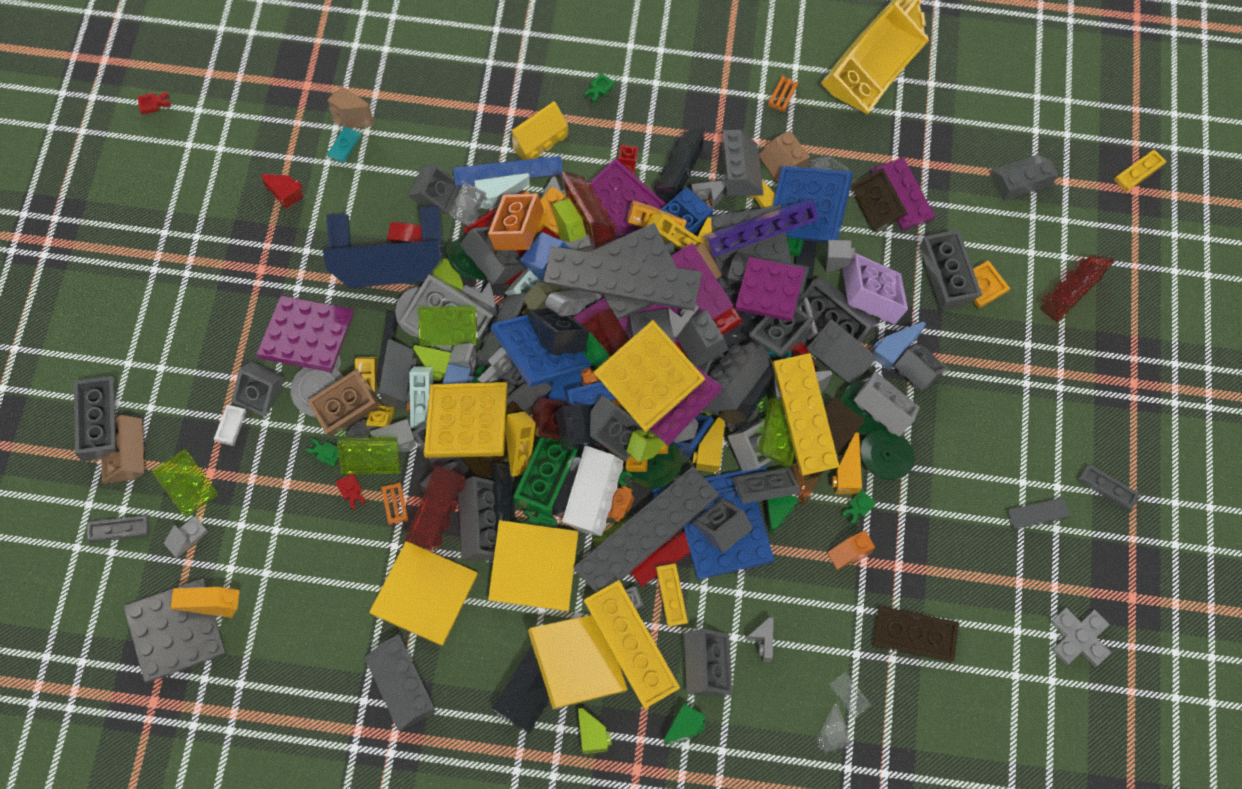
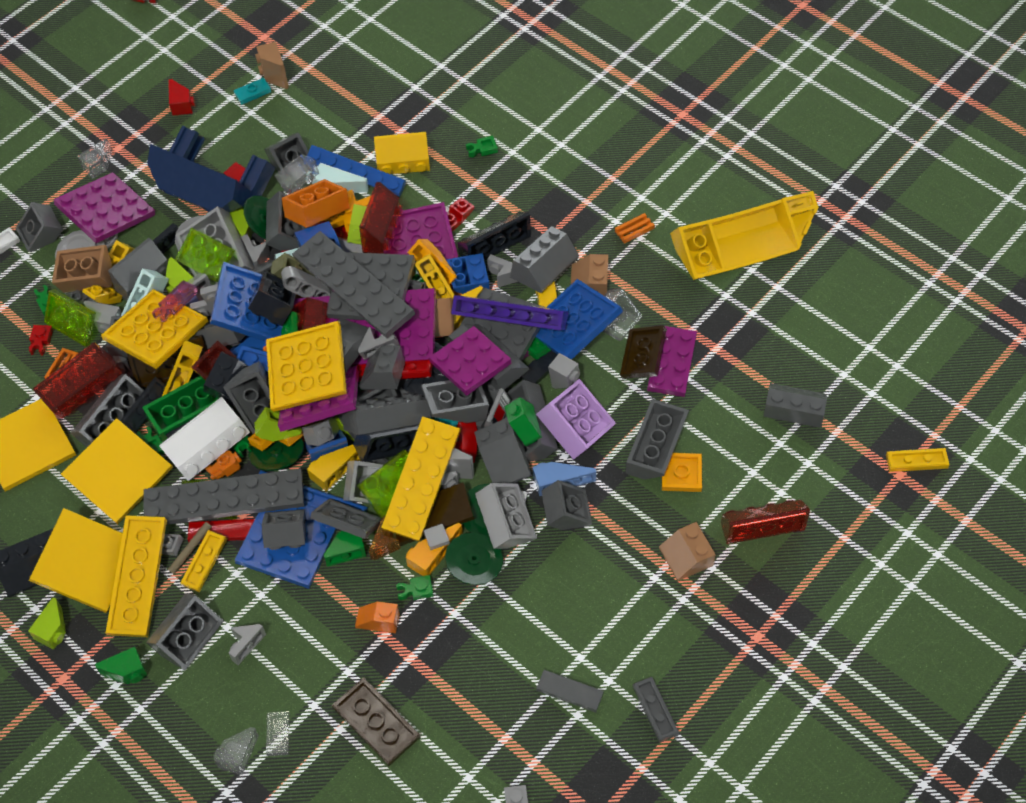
camera: 40 degrees right, 10 degrees down
(253, 293) = (96, 159): none -> clear slope
(465, 383) = (175, 300): none -> clear pink plate
(650, 592) = (189, 548): none -> dark tan bar
(845, 316) = (523, 420): none -> green slope
(850, 455) = (436, 537): none -> light grey tile
(1039, 347) = (687, 552): none -> medium nougat slope

